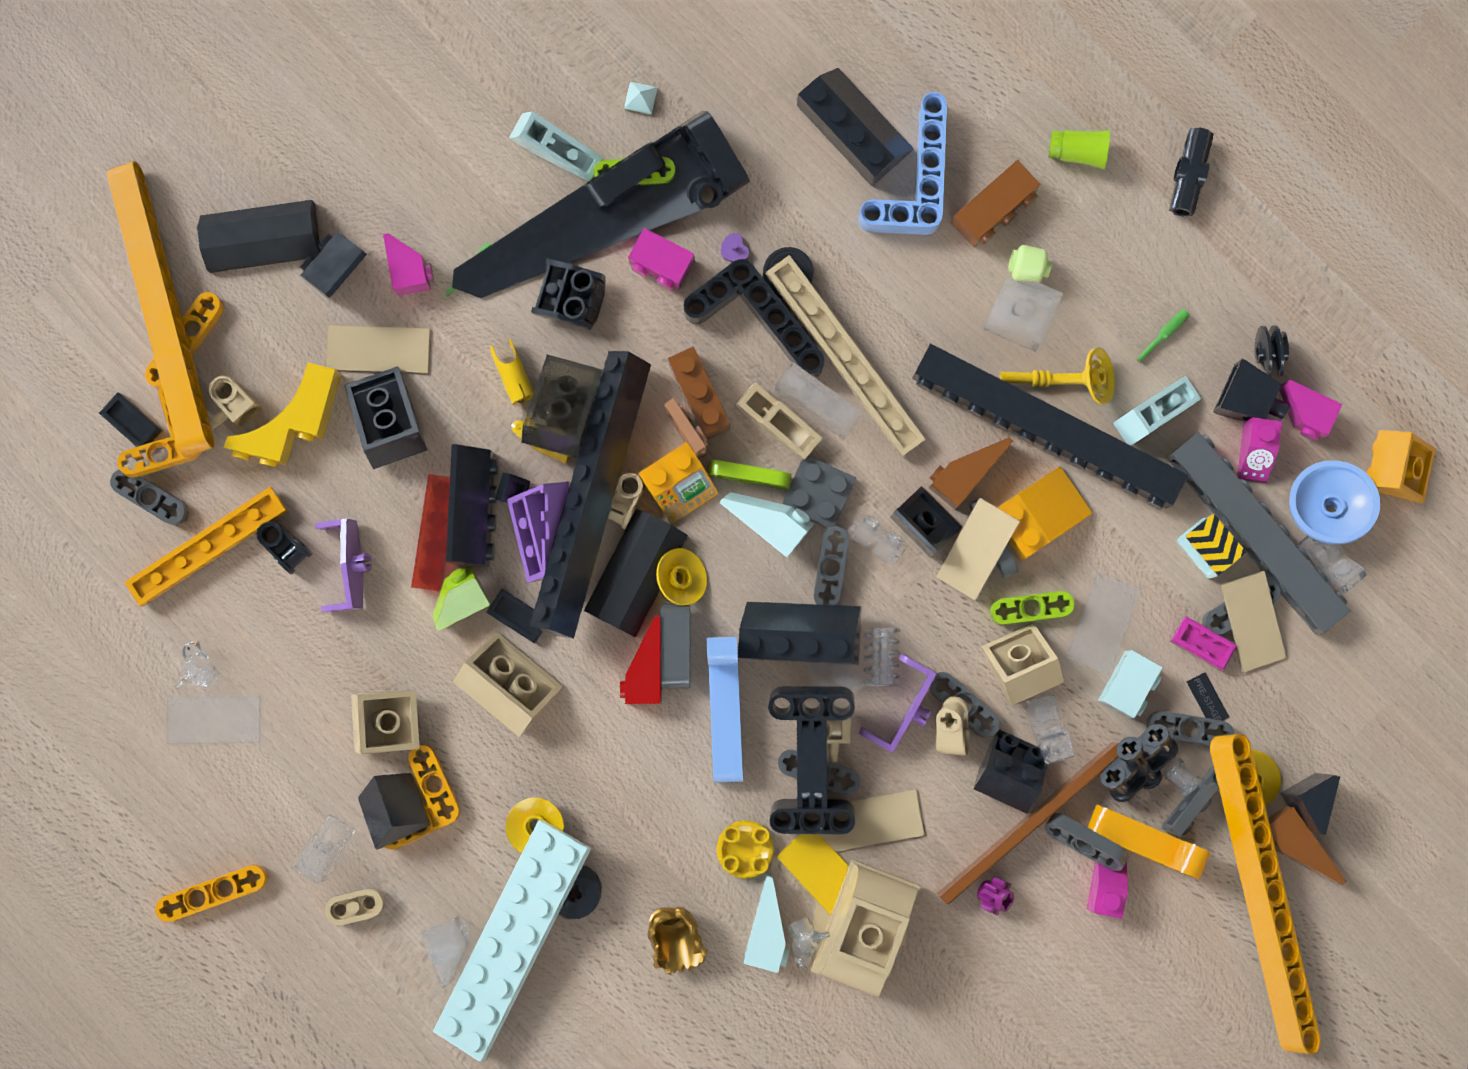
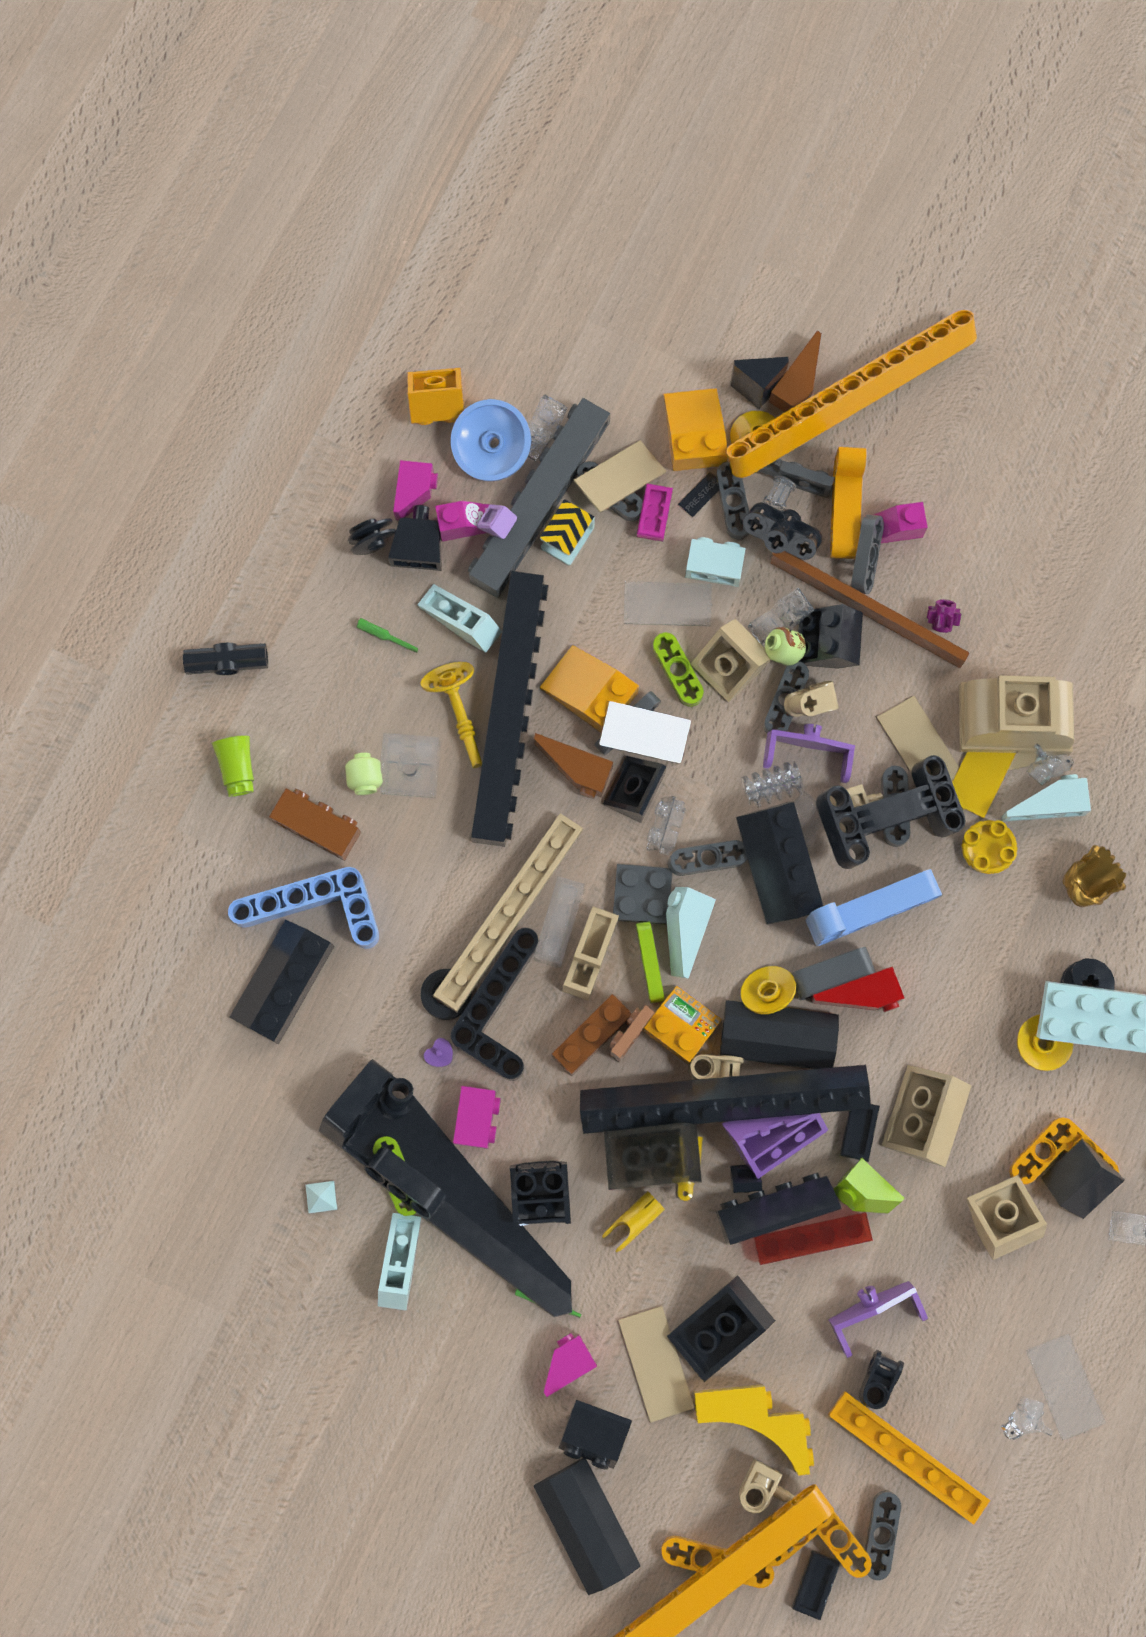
camera: 110 degrees left, 5 degrees down
(1018, 720) = (786, 647): none -> yellowish green head
(1245, 478) = (497, 521): none -> lavender slope
(1280, 716) = (695, 429): none -> light orange slope

